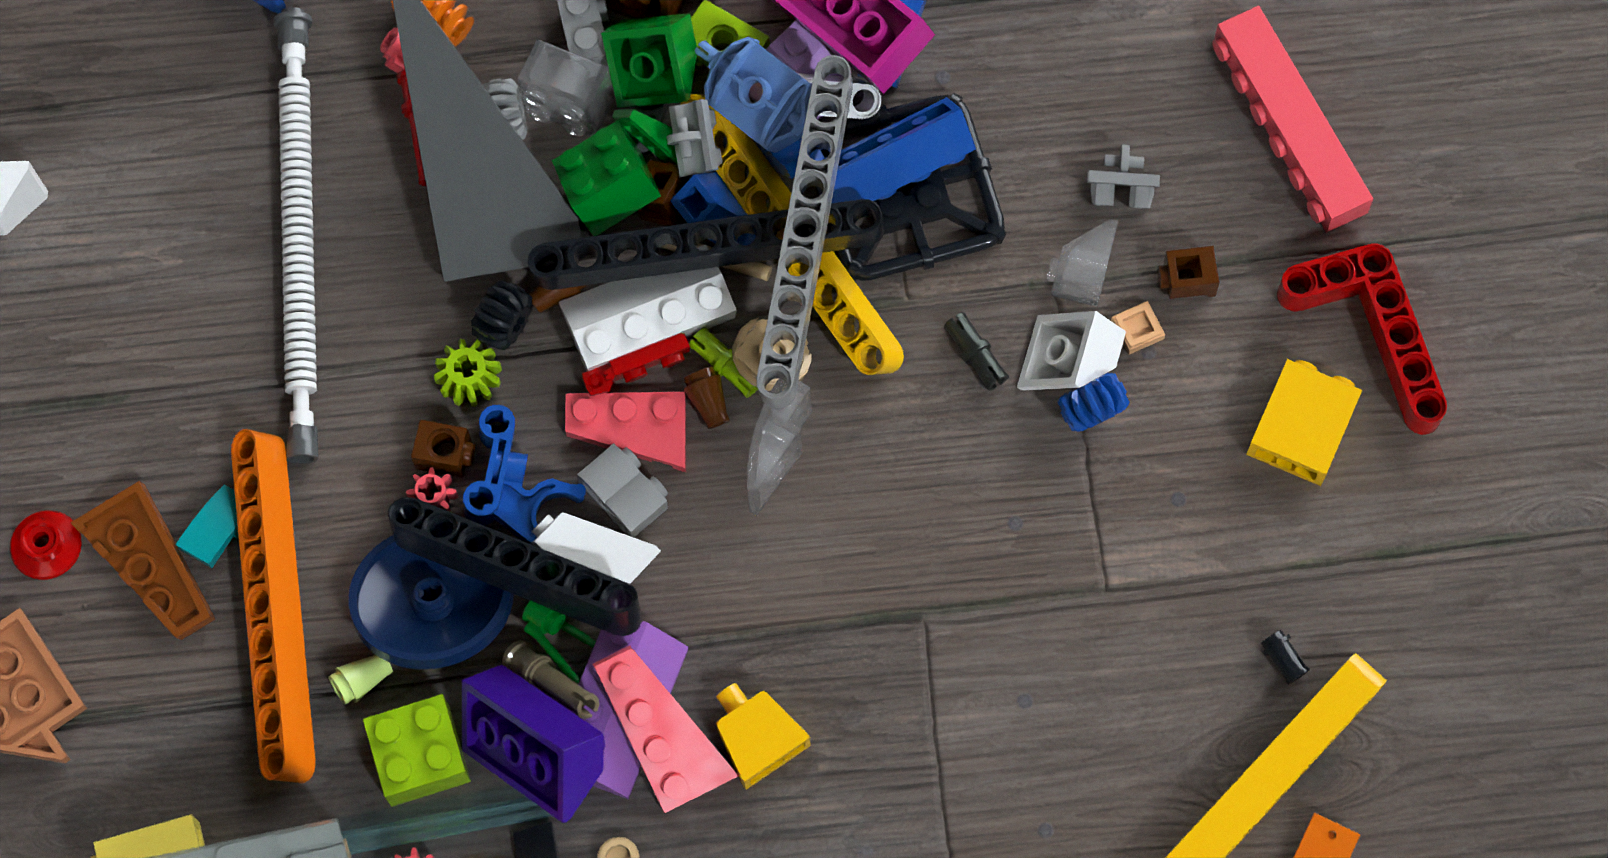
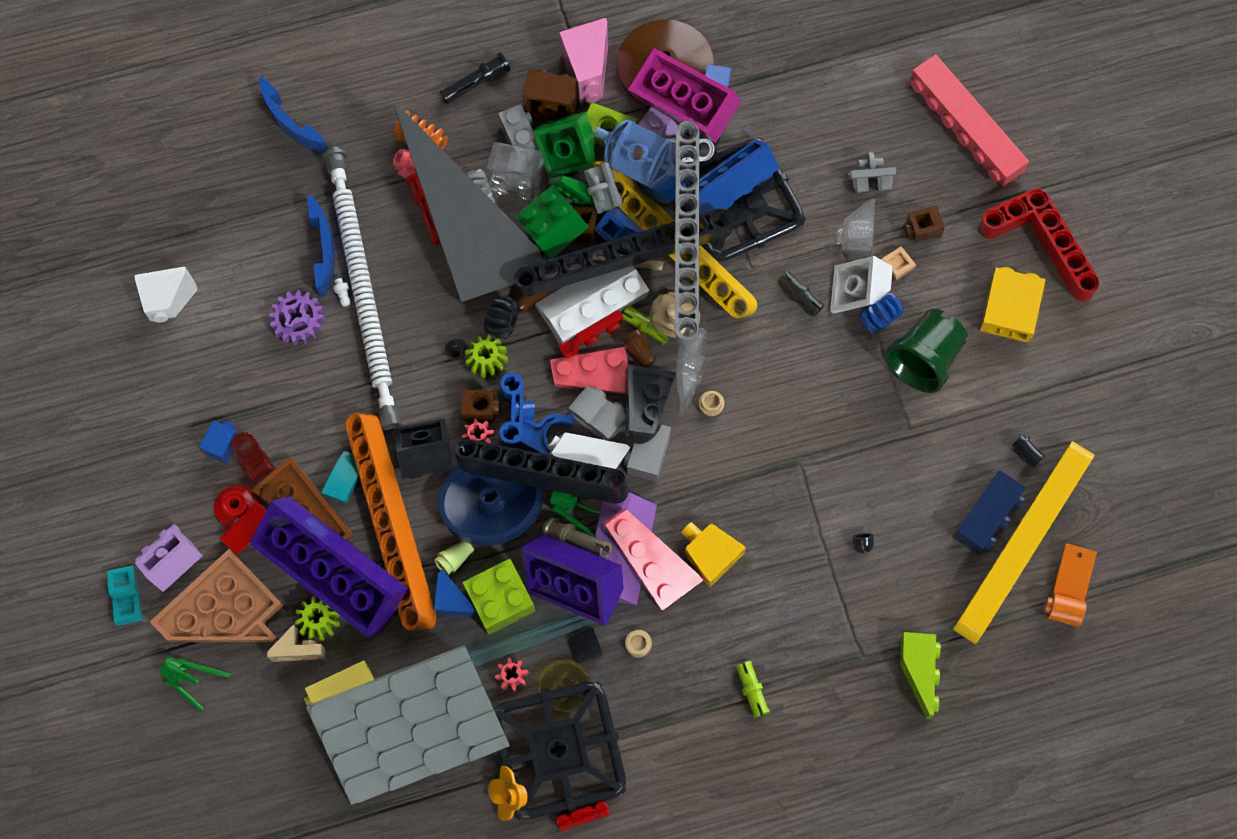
camera: 10 degrees left, 0 degrees up
(37, 439) = (218, 441): none -> blue brick
(54, 582) = (242, 531): none -> red slope
(82, 777) = (288, 648): none -> tan slope
(85, 477) = (255, 459): none -> clear red piece
(124, 729) = (308, 616): none -> lime gear
(163, 660) = (328, 566): none -> dark purple brick
(187, 282) = (300, 327): none -> medium lavender gear
(245, 201) = (322, 271): none -> blue slope
(266, 232) = (341, 289): none -> white piece
(340, 741) = (450, 600): none -> blue slope
(344, 501) = (423, 449): none -> black slope
(423, 359) = (455, 353): none -> black hinge
(688, 571) = (647, 458): none -> light grey arch
(699, 479) = (645, 399): none -> black wing
(803, 502) = (711, 403): none -> tan plate
(997, 756) = (863, 542): none -> black hinge
(1152, 474) = (927, 351): none -> dark green piece
(1204, 745) = (990, 513): none -> dark blue brick

